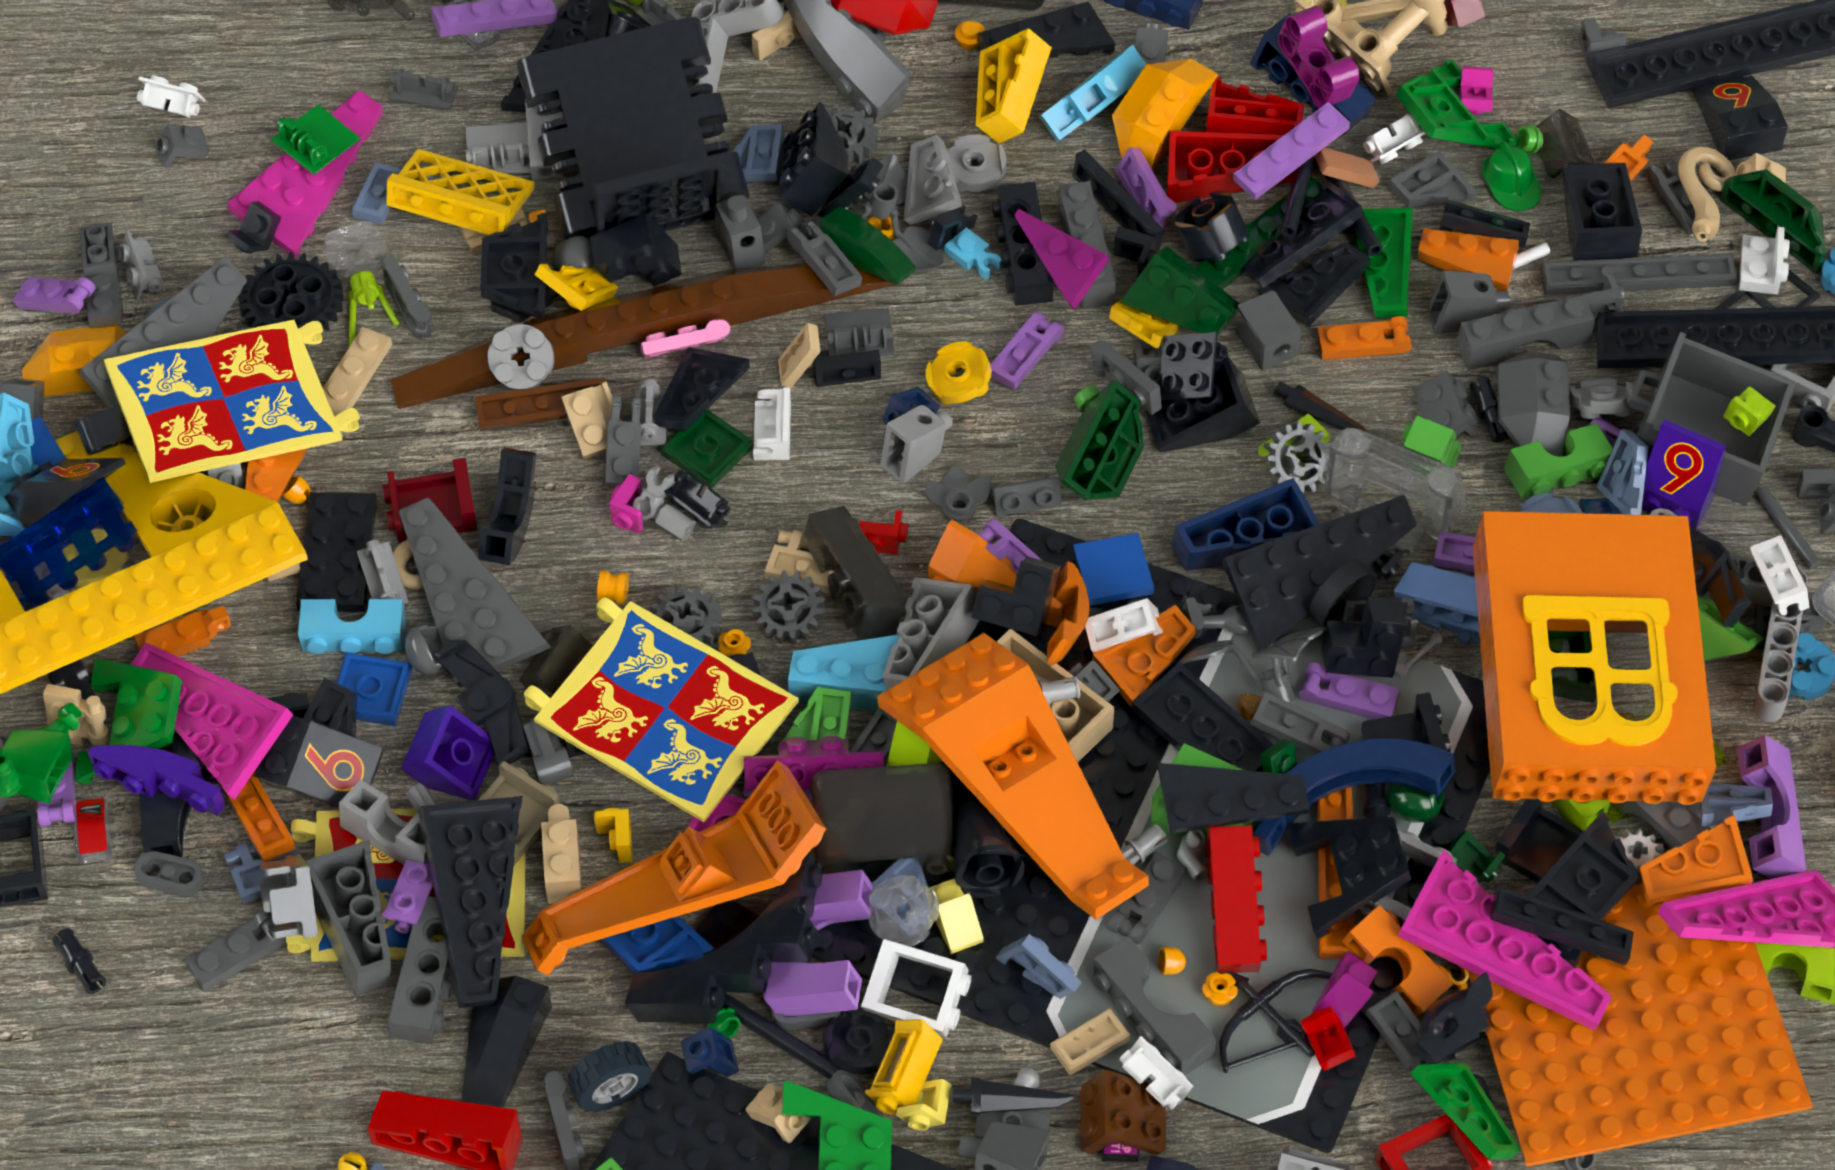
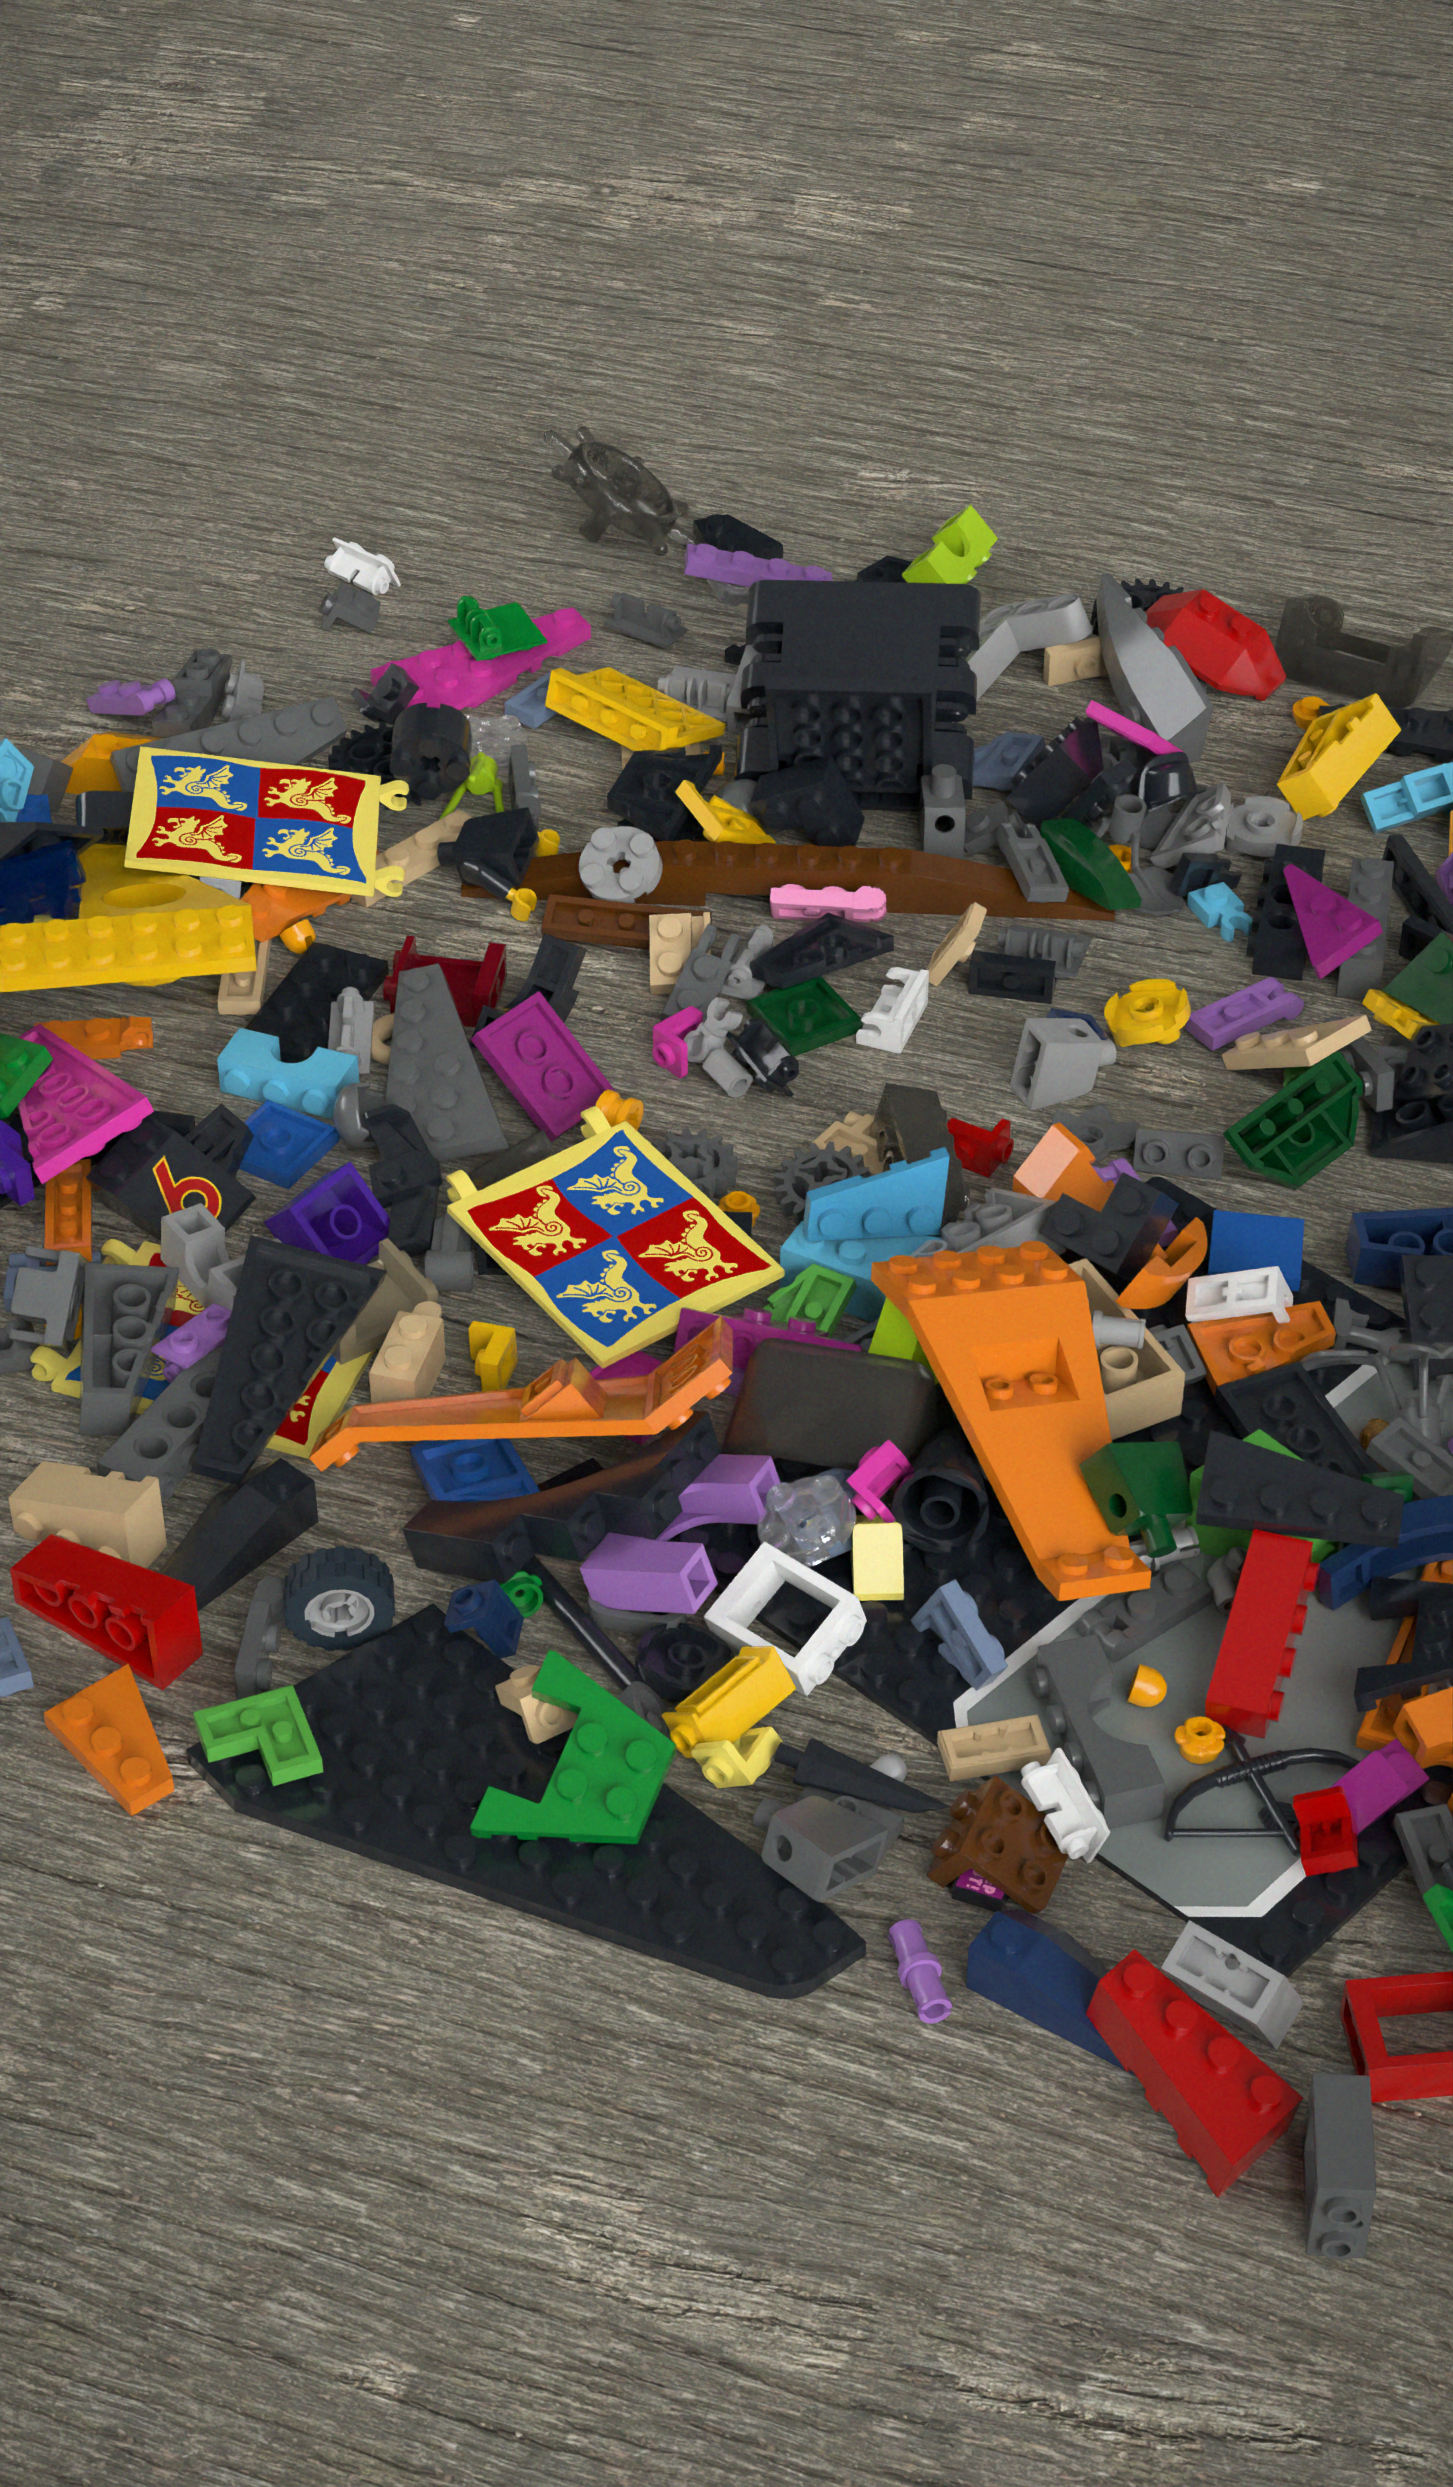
camera: 20 degrees right, 15 degrees down
(330, 290) = (431, 749): none -> black brick
(397, 1063) = (91, 1510): none -> tan wedge
(417, 369) = (496, 854): none -> black torso
(546, 566) = (542, 1065): none -> magenta plate
(857, 113) = (1129, 730): none -> dark pink tile
(864, 624) = (889, 1204): none -> dark azure wing
(894, 149) = (1167, 780): none -> black piece
(940, 859) = (875, 1476): none -> dark pink bracket
(1080, 380) = (1294, 1046): none -> tan wing
(1122, 817) = (1141, 1491): none -> dark green torso

